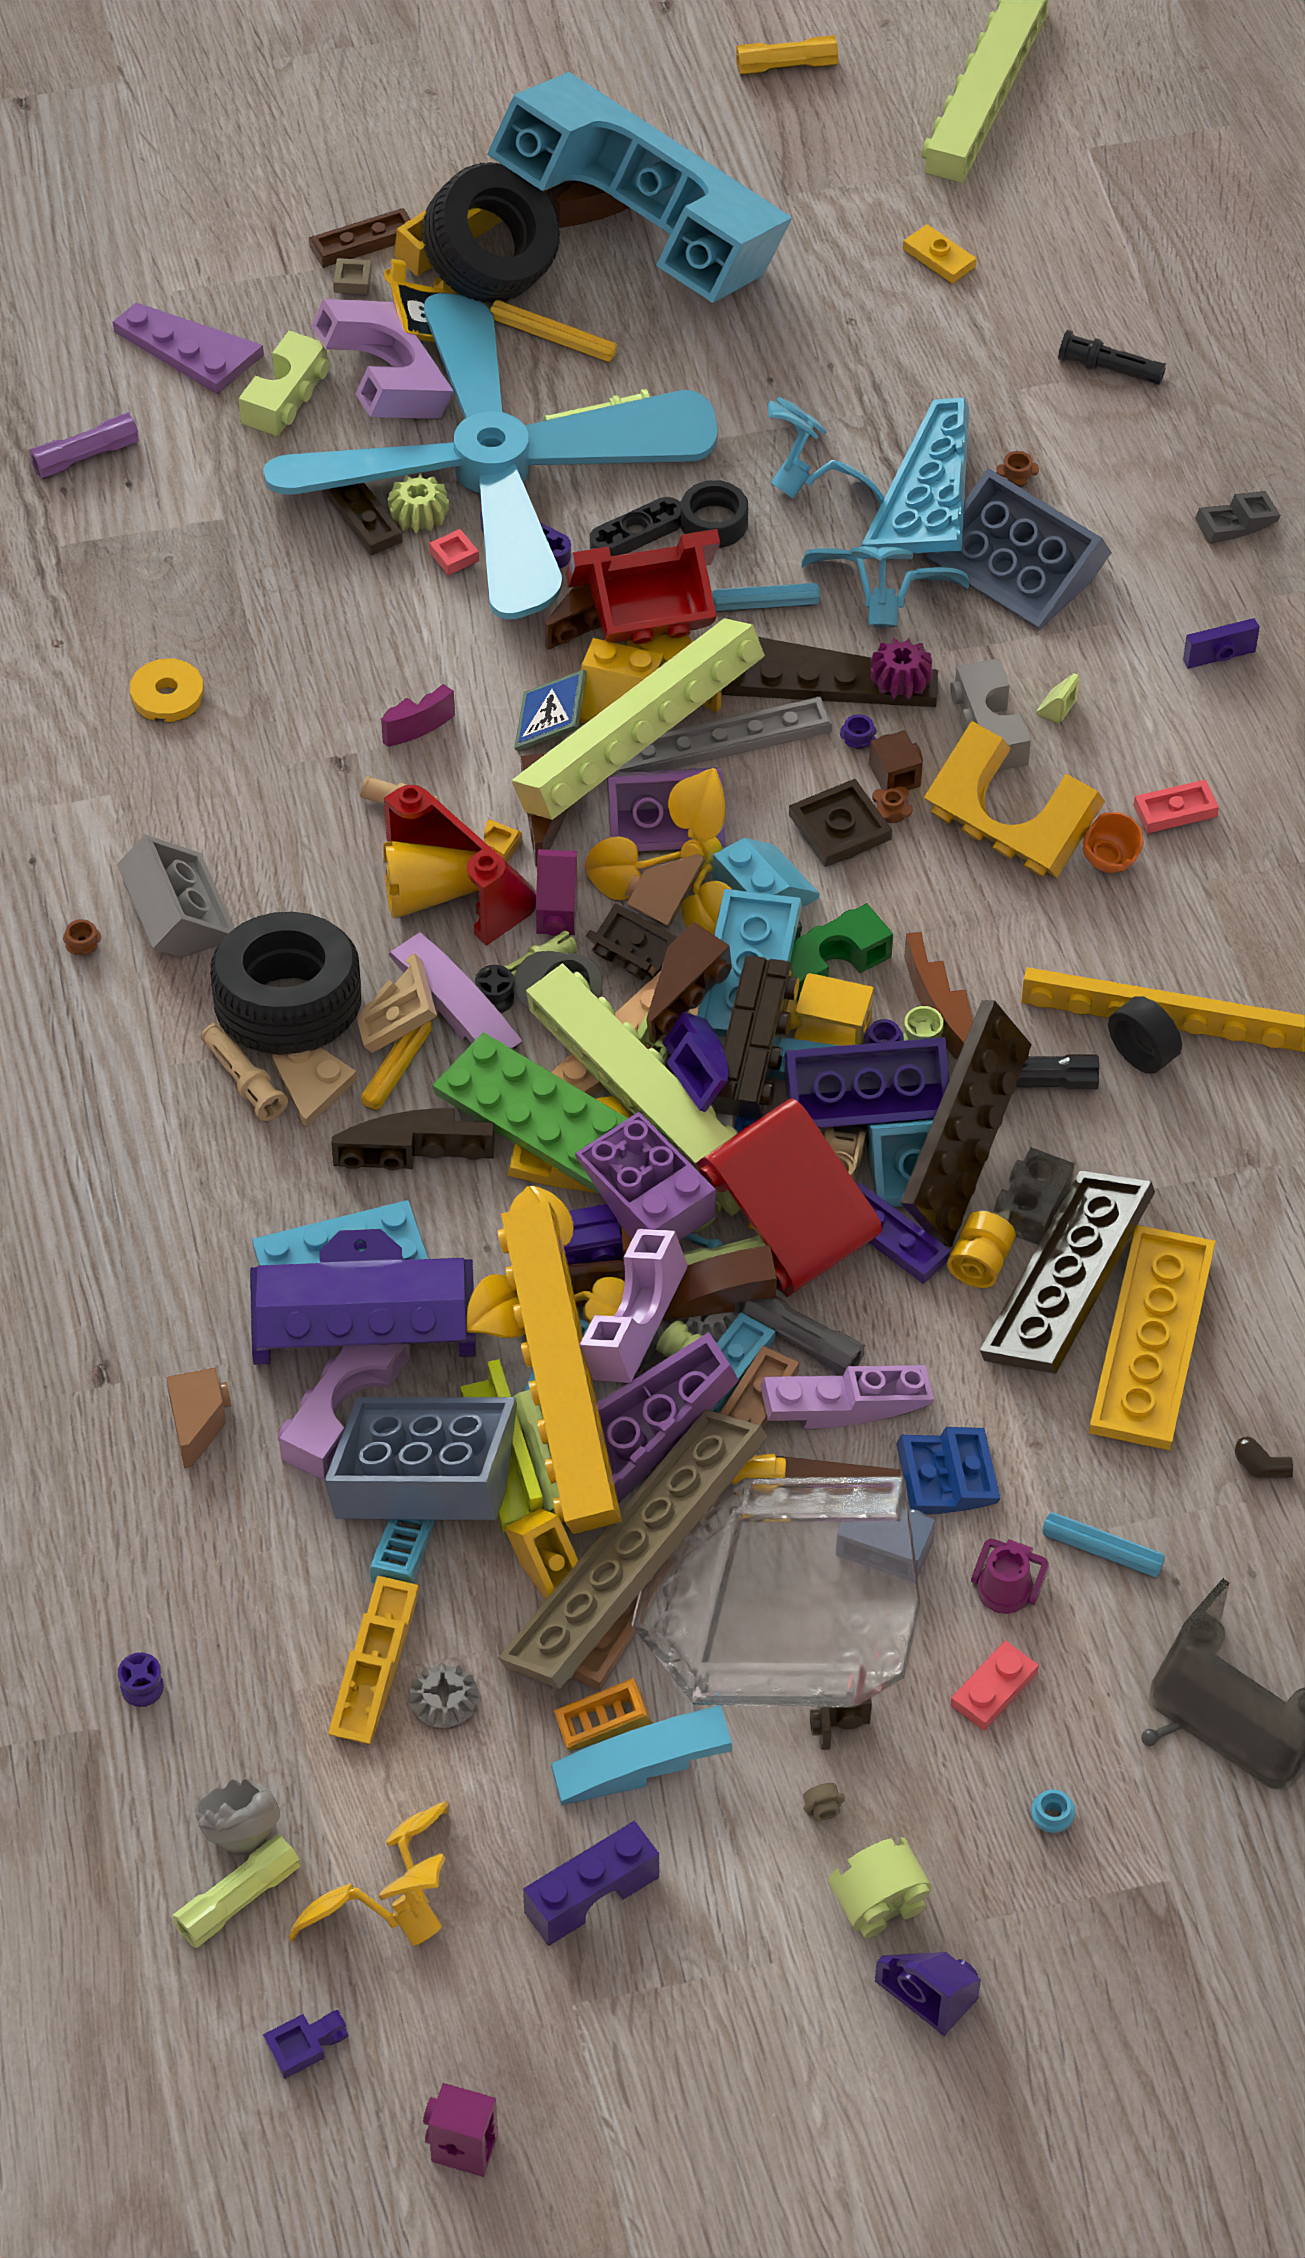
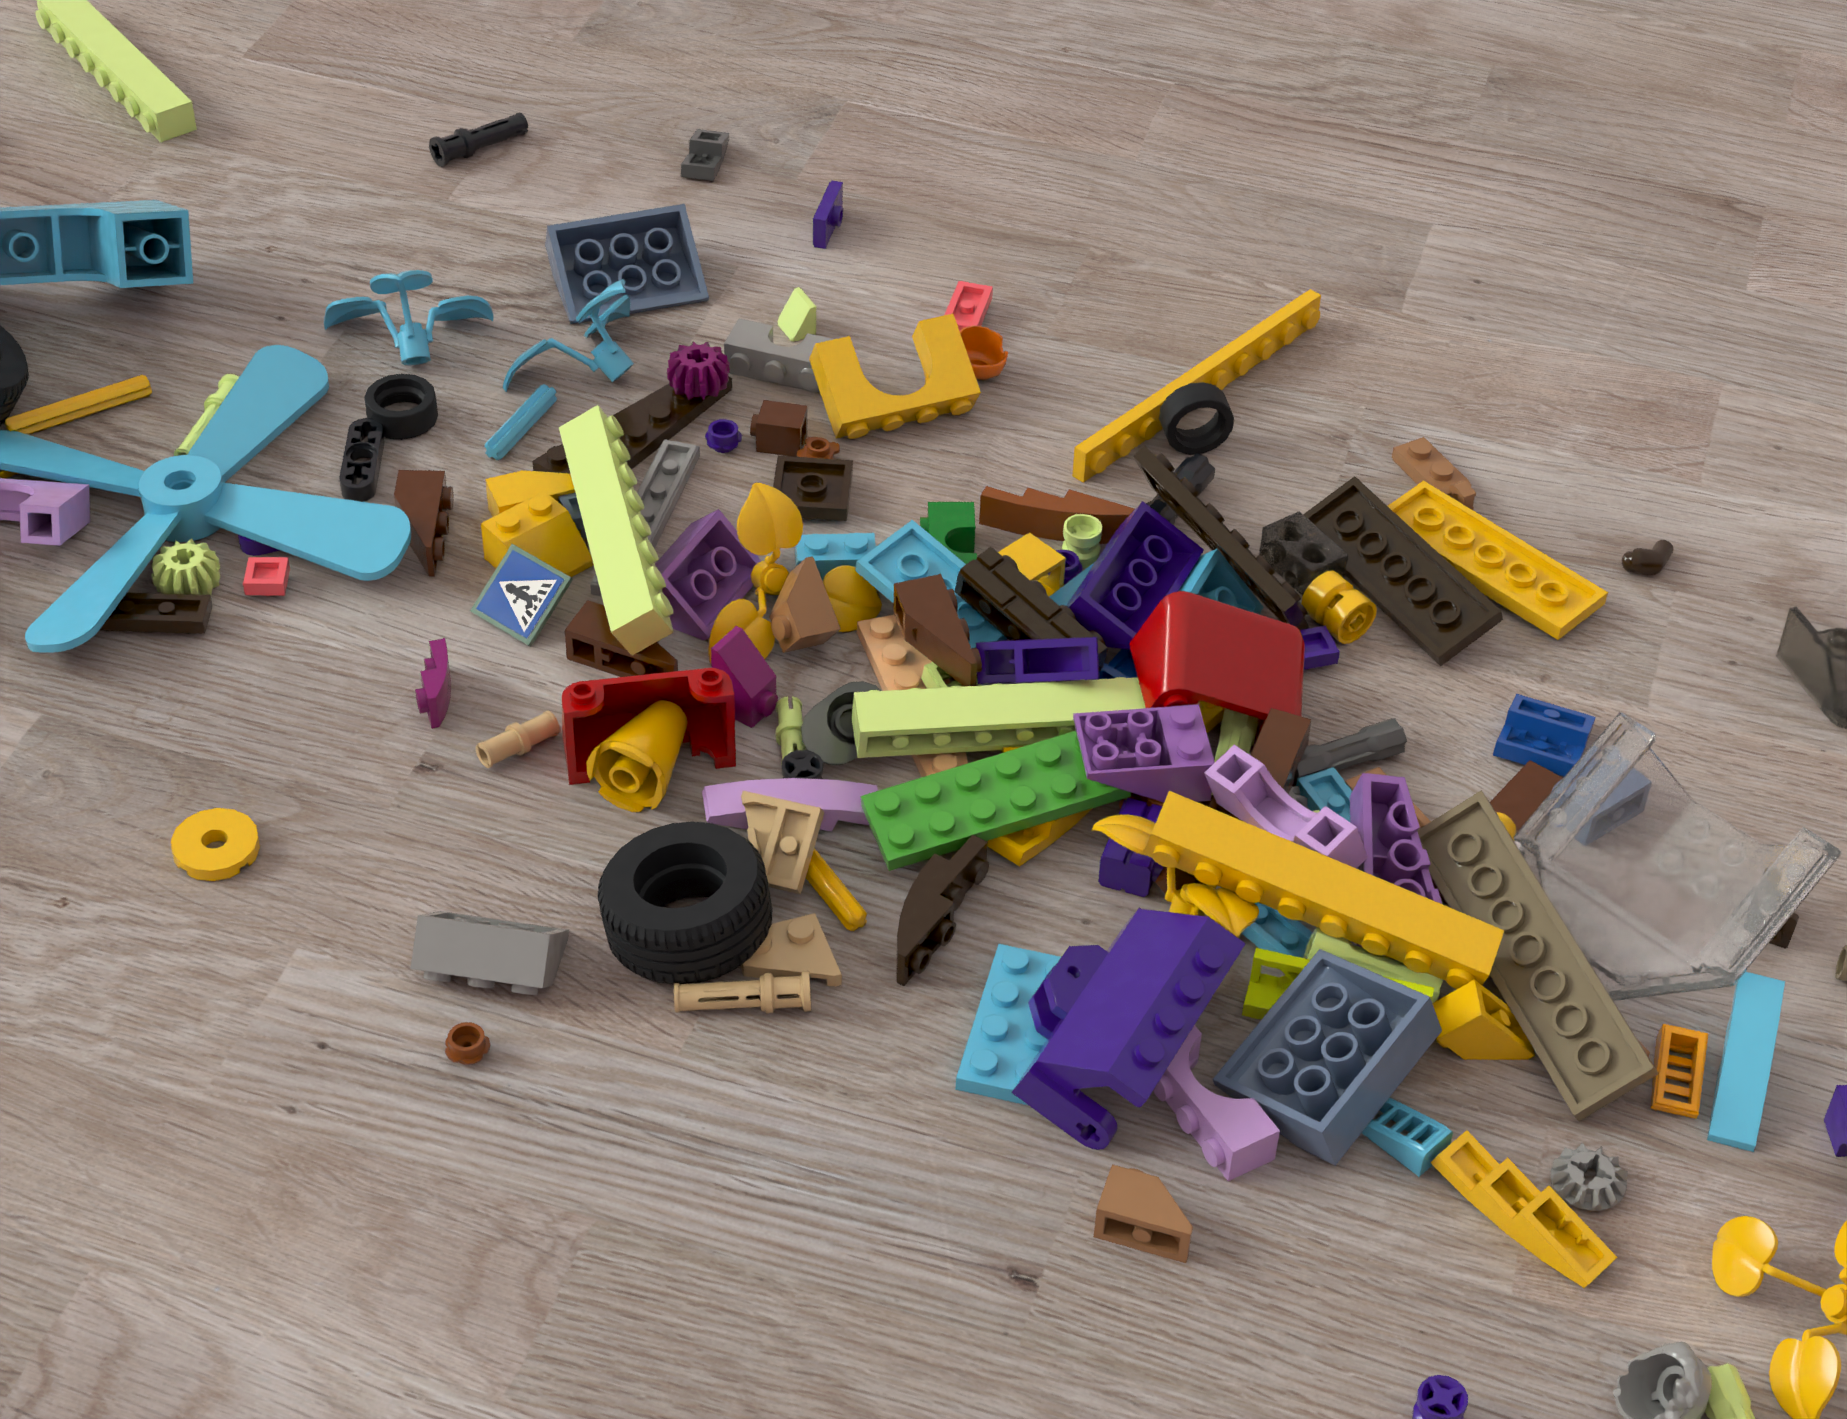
camera: 60 degrees left, 10 degrees down
(631, 941) = (831, 663): dark brown bracket -> none
(650, 589) = (477, 454): red windscreen -> none
(851, 1399) = (1436, 749): lavender slope -> none
(928, 492) = (523, 284): medium azure wing -> none
(939, 253) = (260, 170): yellow plate -> none
(994, 1685) = (1780, 806): coral plate -> none
(1006, 1579) = (1684, 745): magenta piece -> none
(1017, 468) = (533, 231): dark orange plate -> none
(1103, 1544) = (1677, 681): medium azure axle -> none
(1249, 1248) = (1425, 463): none -> medium nougat hinge

